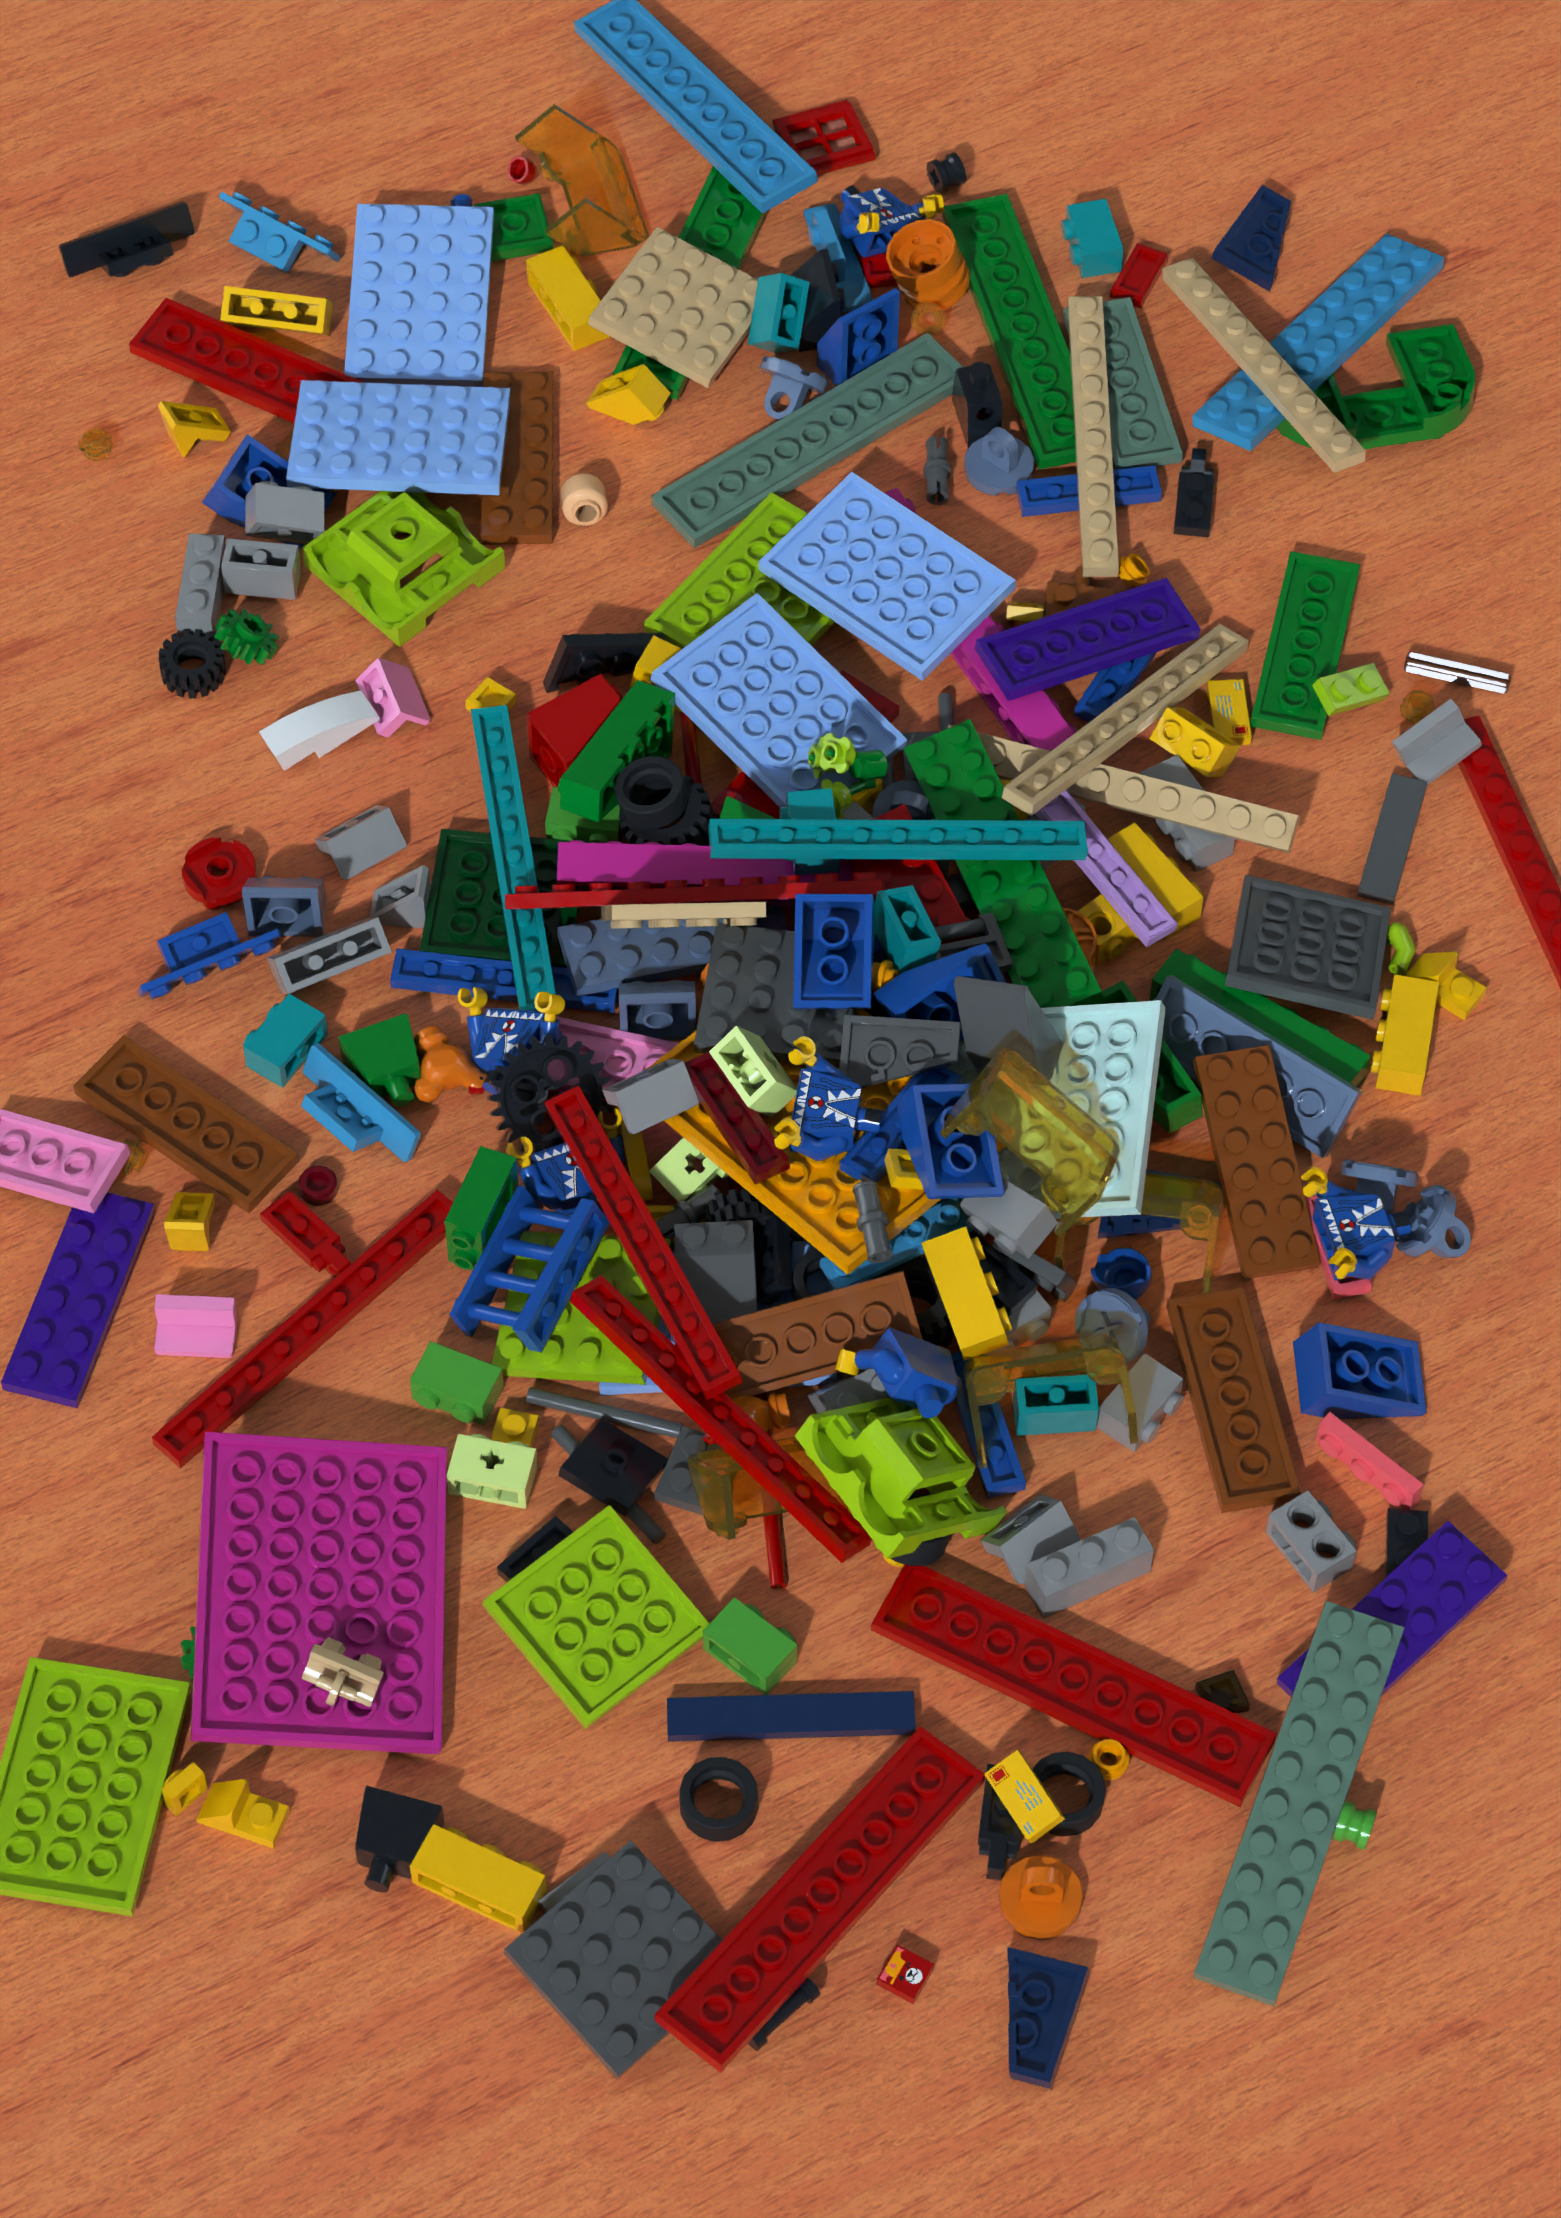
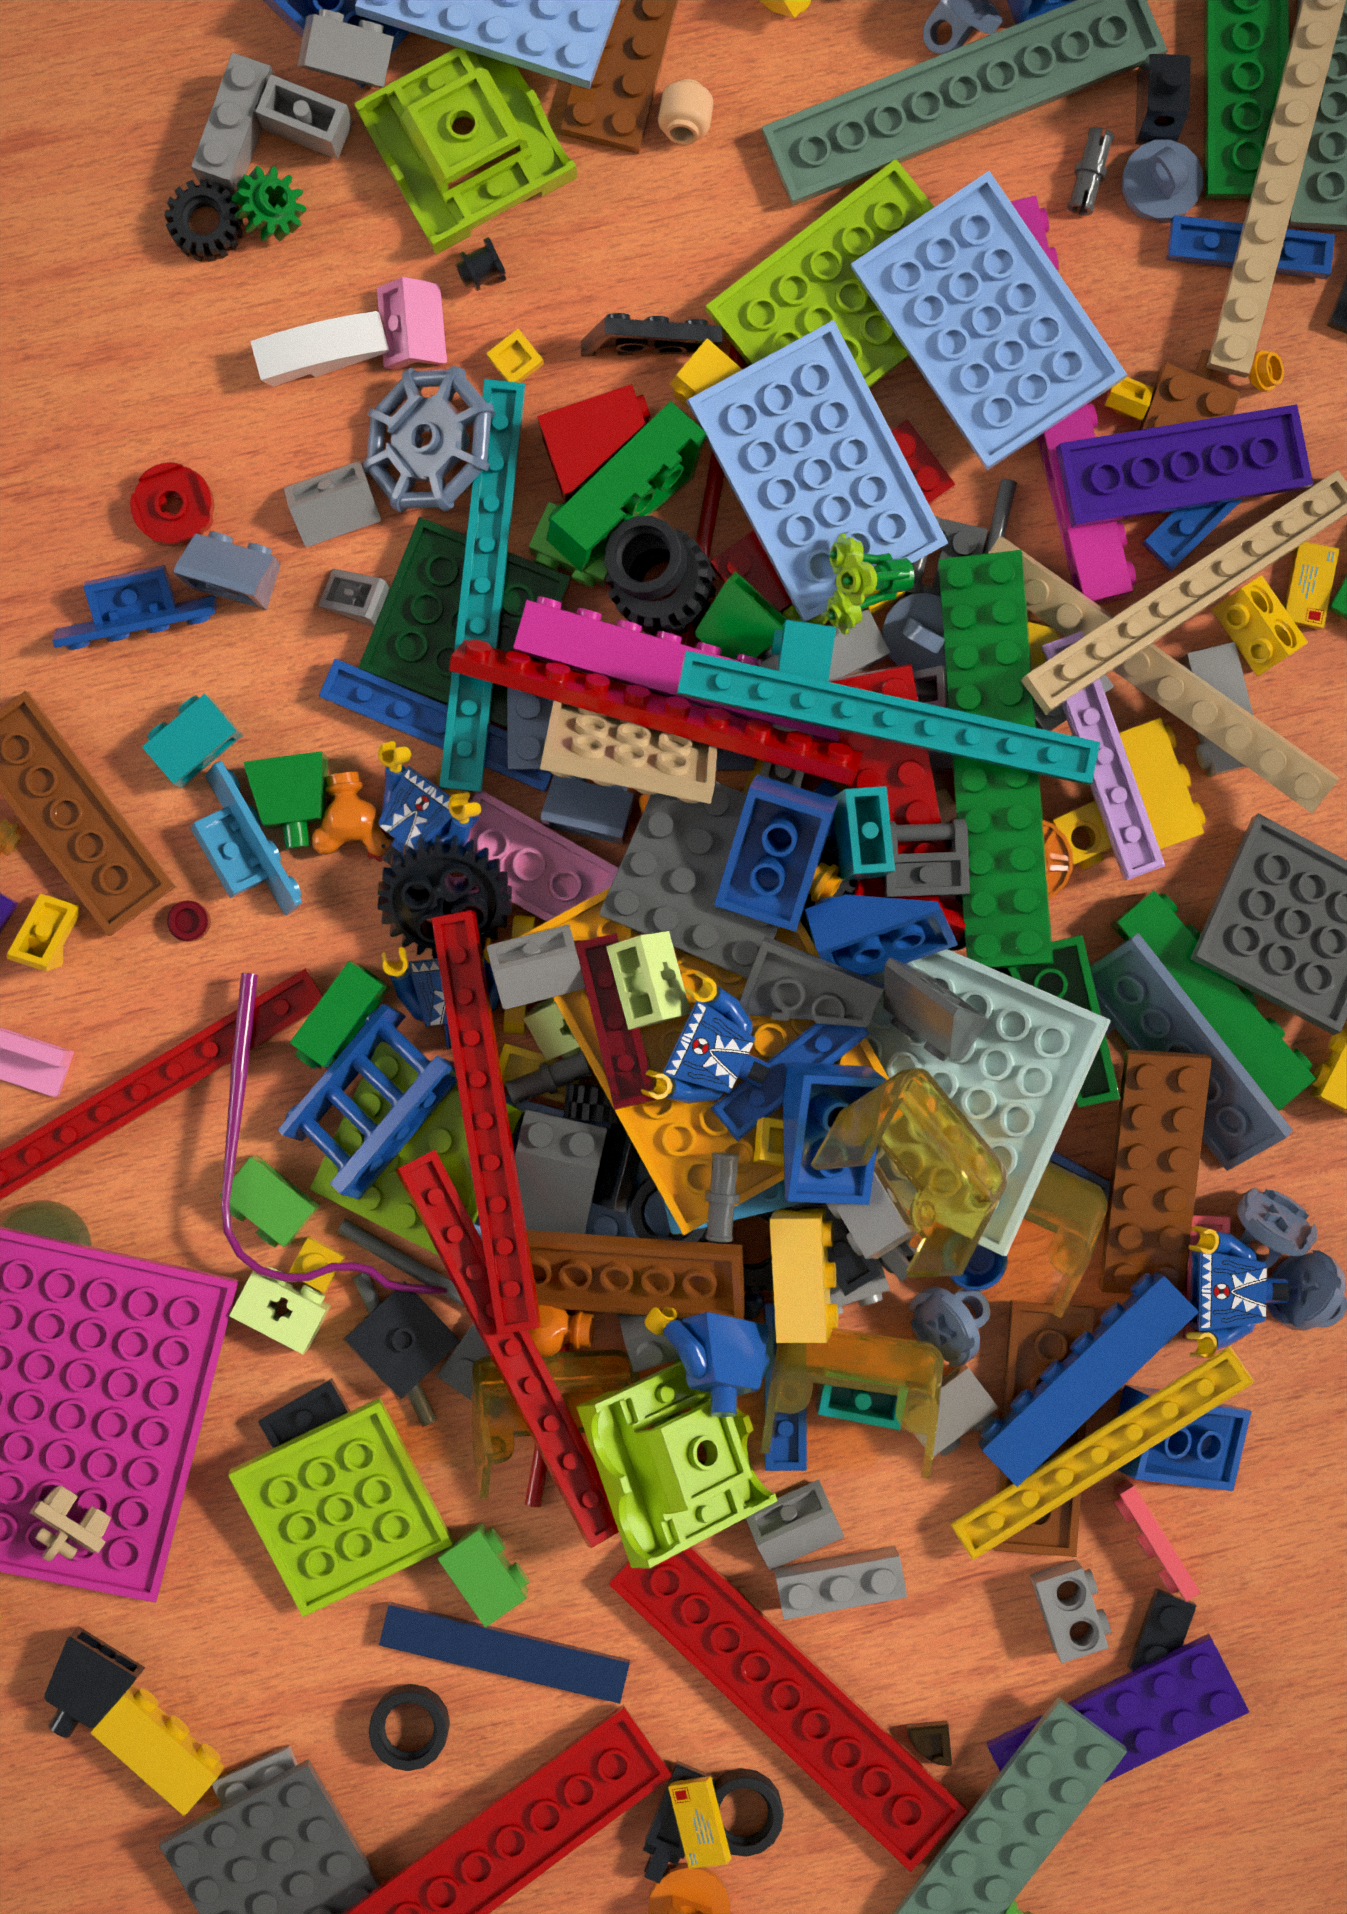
camera: 10 degrees right, 30 degrees up
(306, 1234) = (160, 982): red hinge -> none
(329, 955) = (259, 651): light grey brick -> none
(403, 1293) = (238, 1080): none -> magenta piece
(412, 753) = (447, 443): none -> sand blue plate
(442, 642) = (480, 266): none -> black brick
(1111, 1749) = (792, 1796): light orange plate -> none
(1253, 1331) = (1087, 1377): none -> blue brick
(1286, 1383) = (1102, 1452): none -> yellow tile

